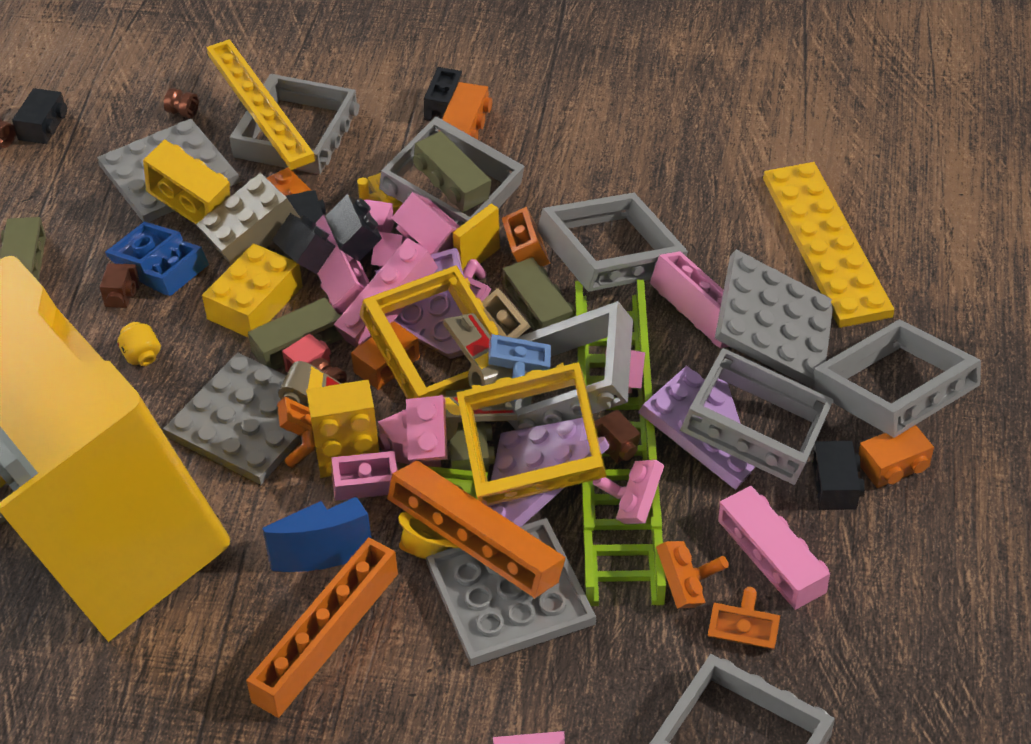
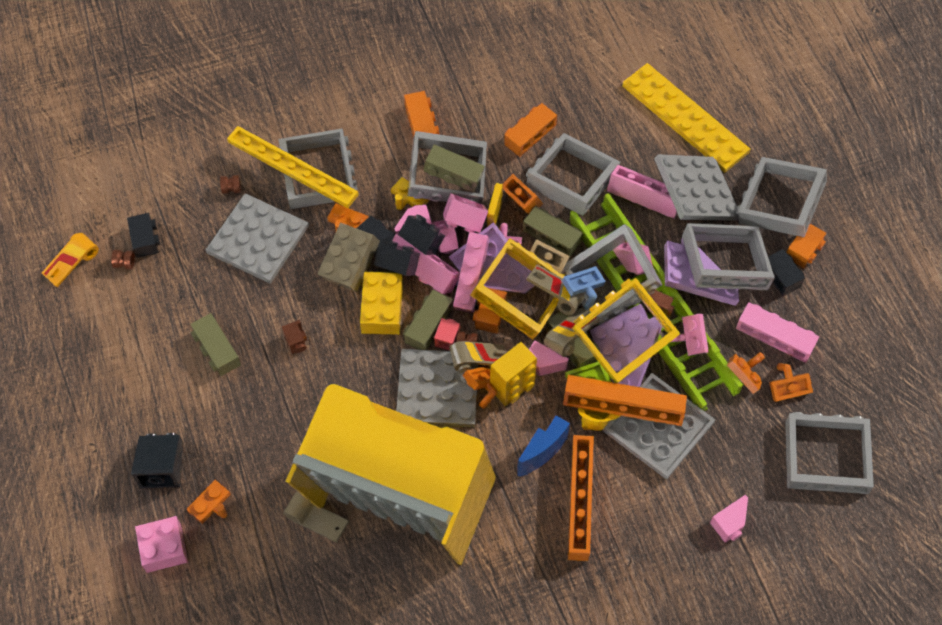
camera: 30 degrees left, 15 degrees up
(138, 344) = (339, 371): yellow head -> none
(159, 256) = (302, 303): blue slope -> none
(184, 182) = (294, 249): yellow brick -> none
(362, 475) = (537, 396): bright pink brick -> none
(425, 429) = (562, 354): bright pink bracket -> none
(440, 91) = (395, 106): black hinge -> none
(597, 177) = (530, 129): none -> orange brick

